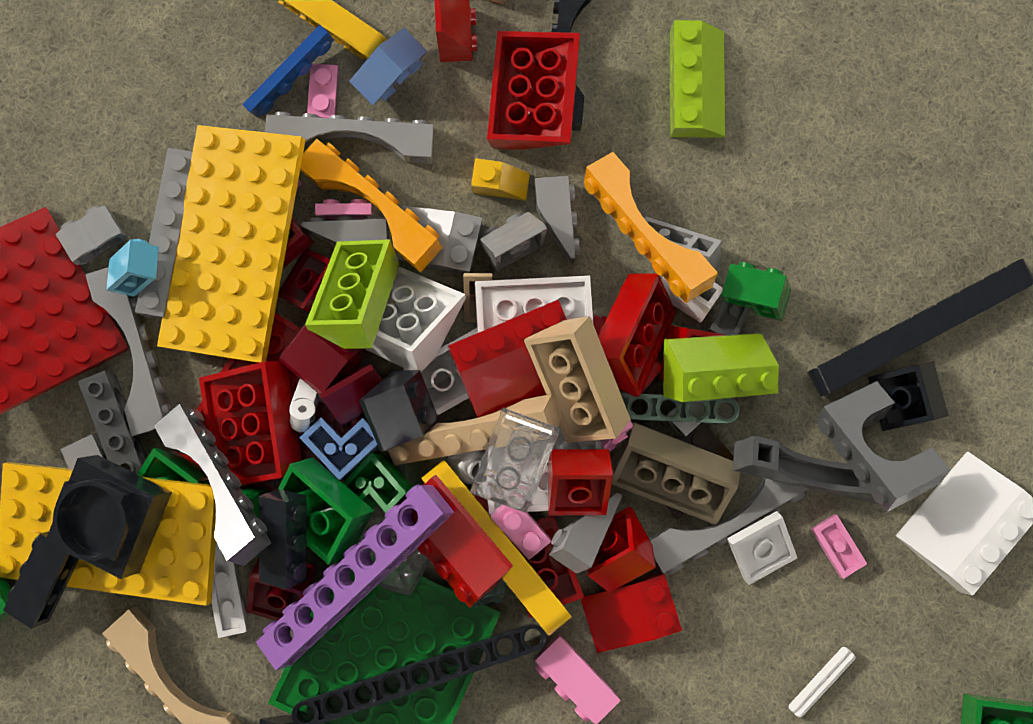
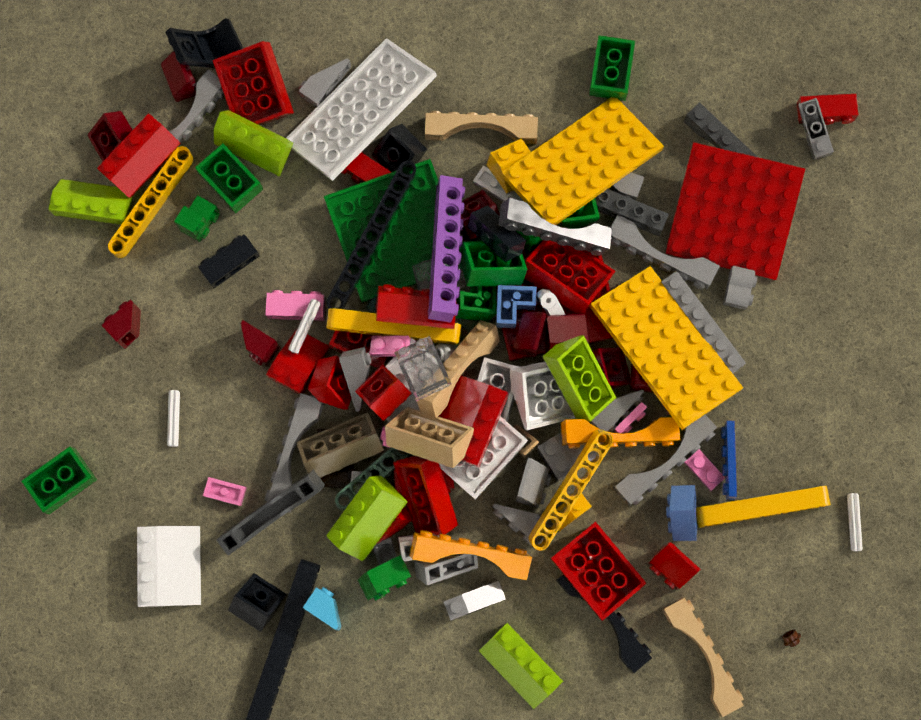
camera: 145 degrees right, 5 degrees down
(40, 583) = (588, 115): black brick -> none
(107, 516) = (586, 167): black container -> none
(132, 267) = (698, 288): medium azure brick -> none
(186, 619) = (505, 157): none -> yellow slope
(399, 409) = (502, 344): black slope -> none
(470, 198) = (570, 499): none -> yellow beam
(590, 644) = (304, 326): none -> white axle
(660, 675) = (258, 344): none -> dark red slope
(685, 186) = (474, 600): none -> slope
(762, 548) = (262, 452): white plate -> none
(848, 319) = (324, 607): none -> medium azure slope
(887, 480) = (230, 538): dark grey arch -> none

